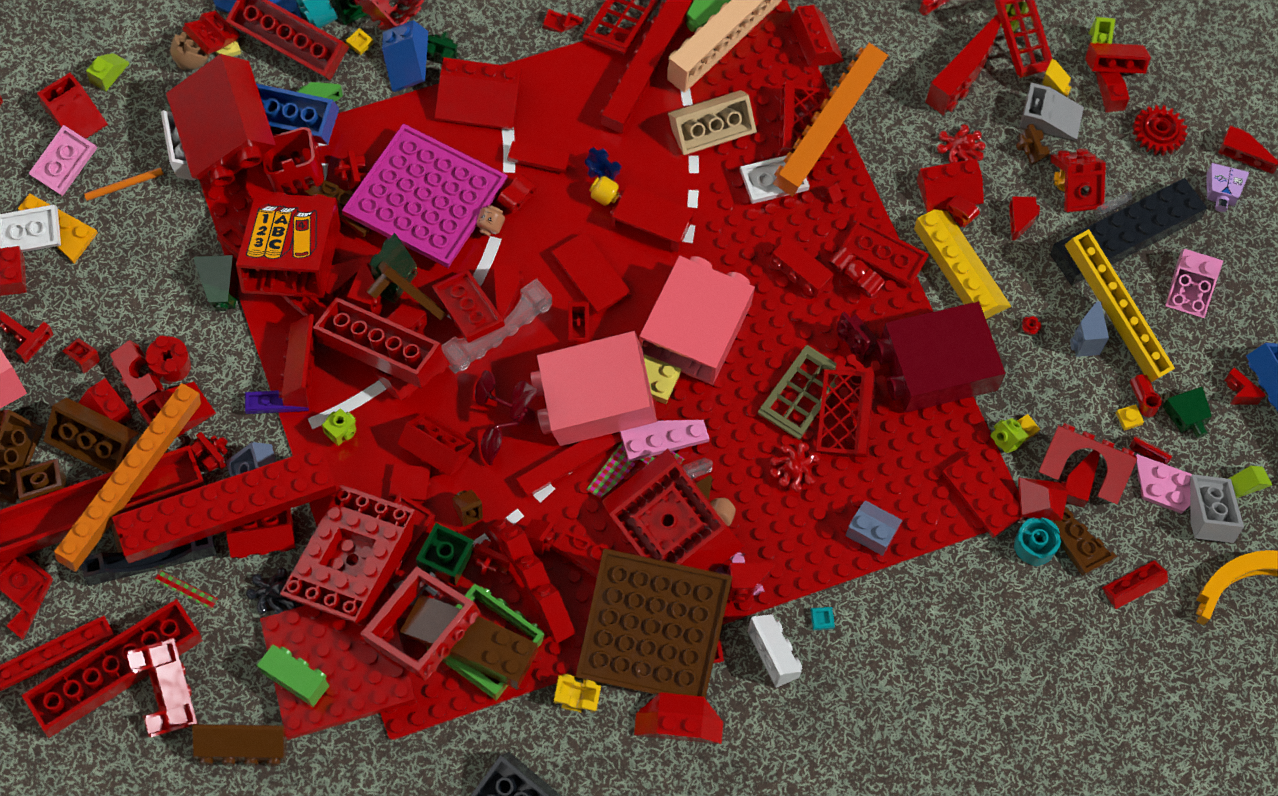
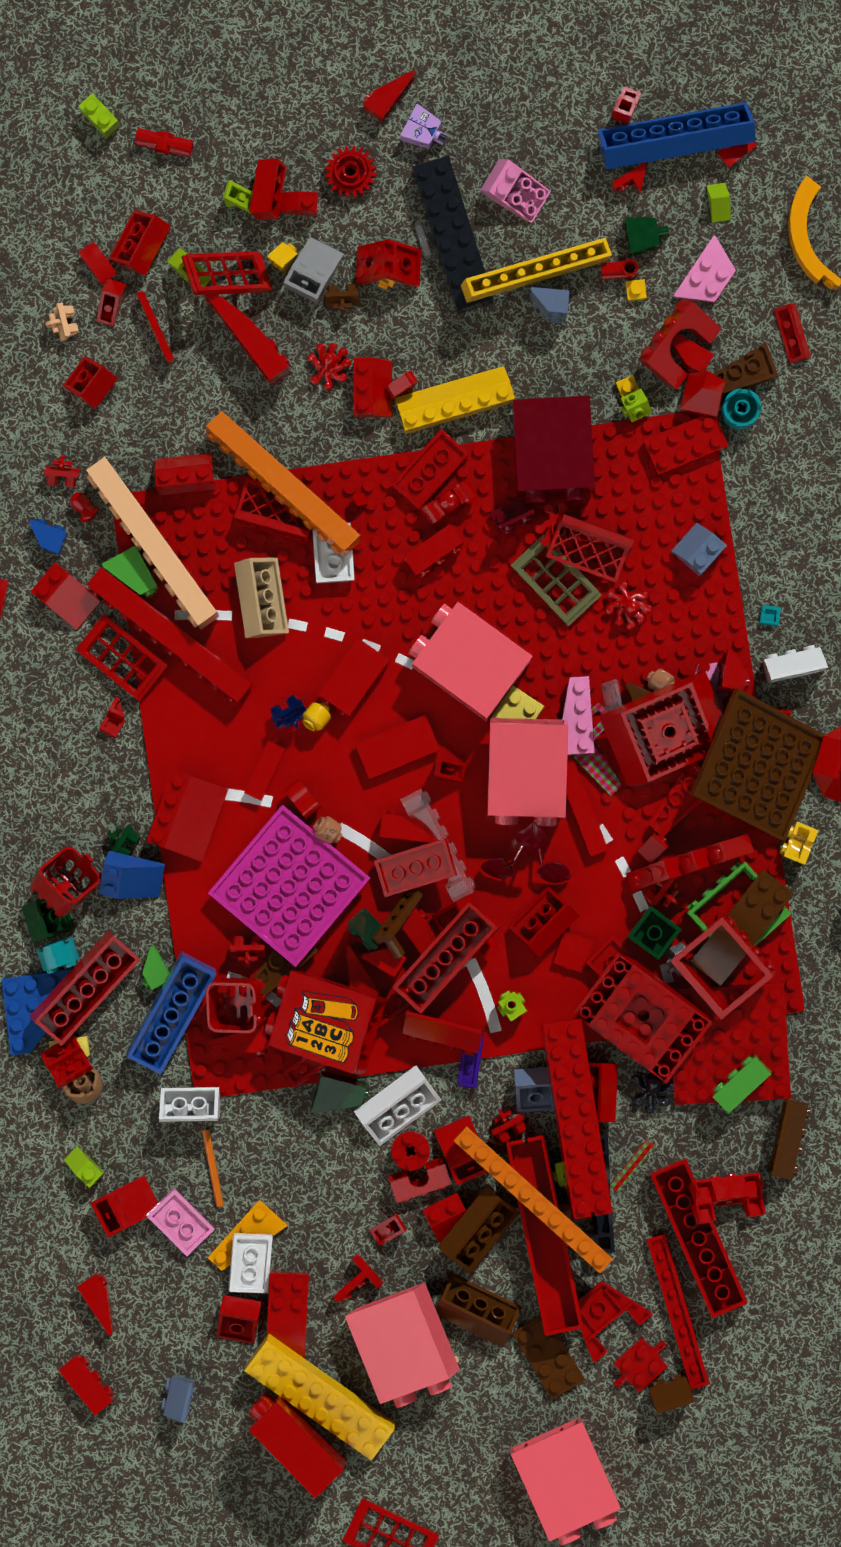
camera: 70 degrees left, 20 degrees up
(40, 480) = (514, 1279): reddish brown slope -> none
(214, 340) = (397, 1105): none -> white slope
(221, 120) = (188, 1065): red brick -> none
(359, 41) = (100, 919): yellow plate -> none
(468, 507) = (611, 905): reddish brown slope -> none
(1022, 214) = (416, 329): red slope -> none
(1030, 330) = (528, 358): red plate -> none
(1150, 450) = (671, 280): red slope -> none
(1214, 509) = (740, 243): light grey slope -> none

